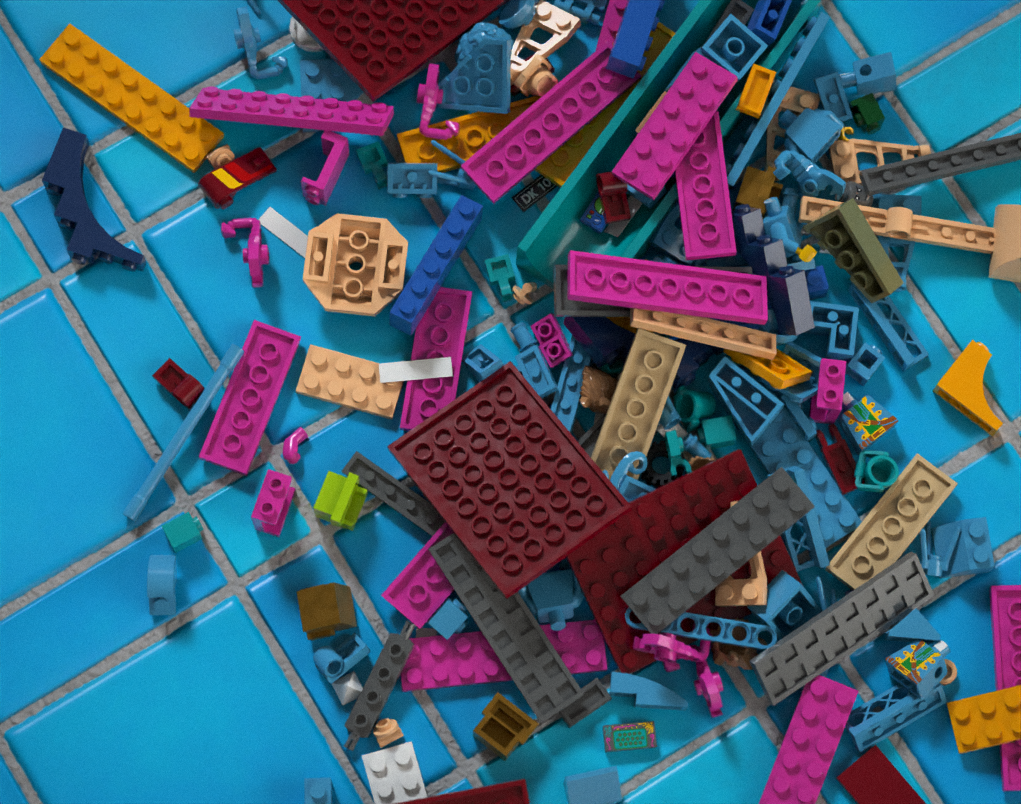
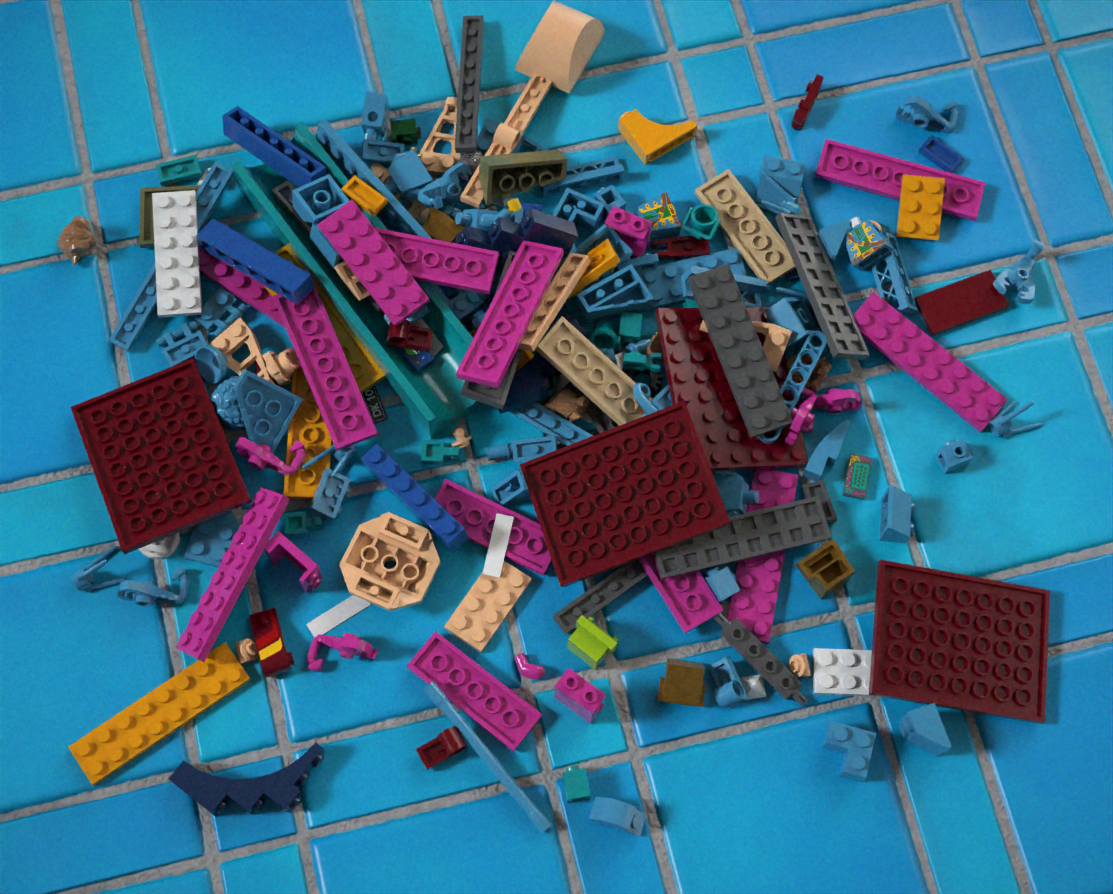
camera: 70 degrees left, 5 degrees down
(551, 340) = (510, 429): dark pink slope -> none

